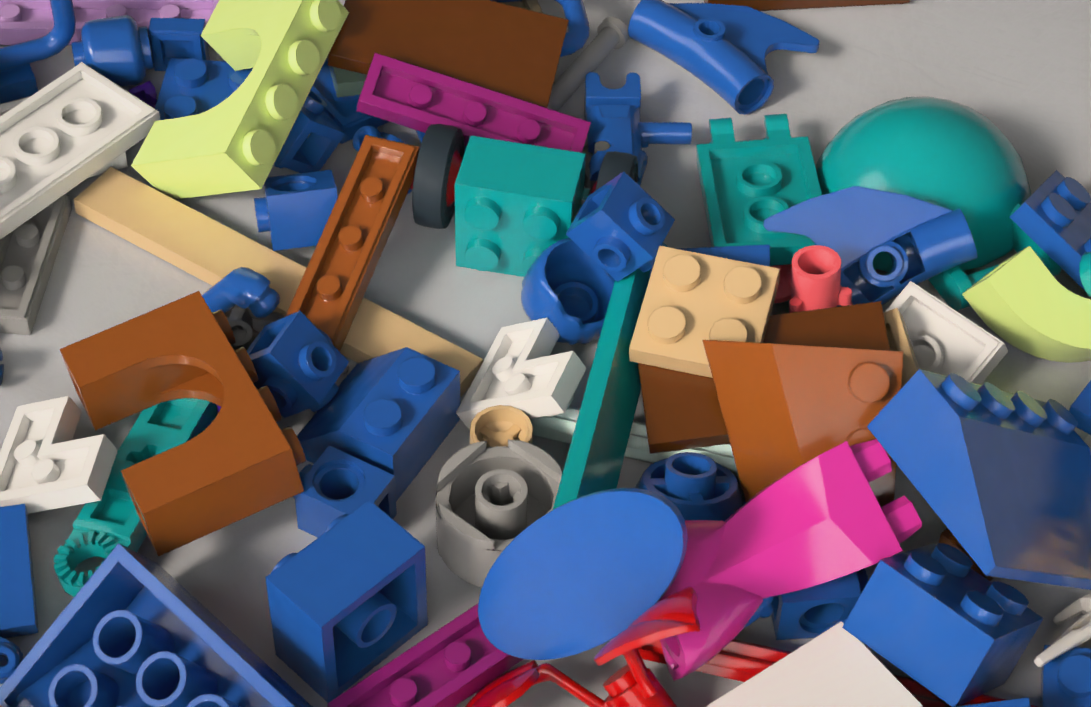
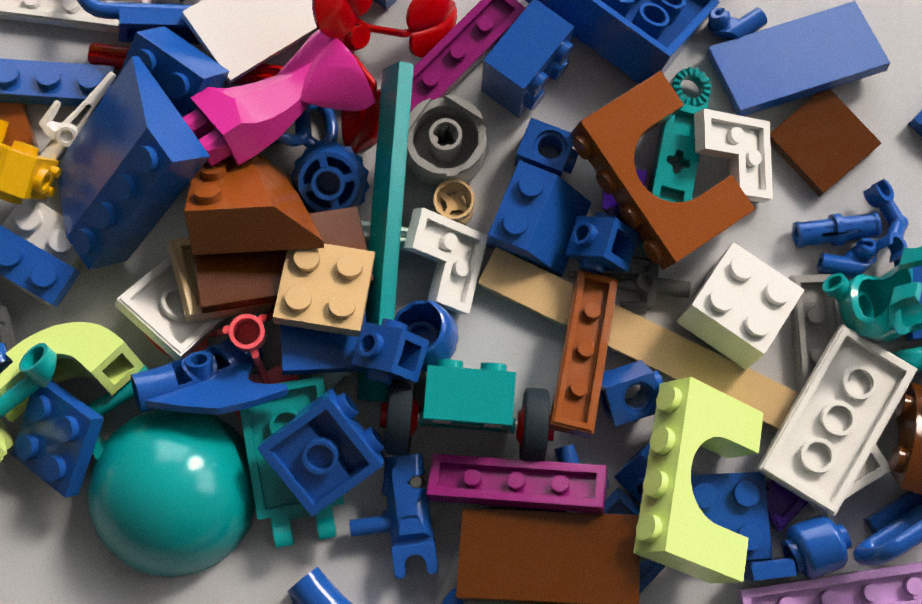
camera: 170 degrees right, 30 degrees up
(116, 265) = (740, 306): none -> white brick
(244, 289) = (650, 308): blue arm -> none
(582, 573) = (383, 47): shield -> none
(715, 162) = (324, 451): none -> blue plate

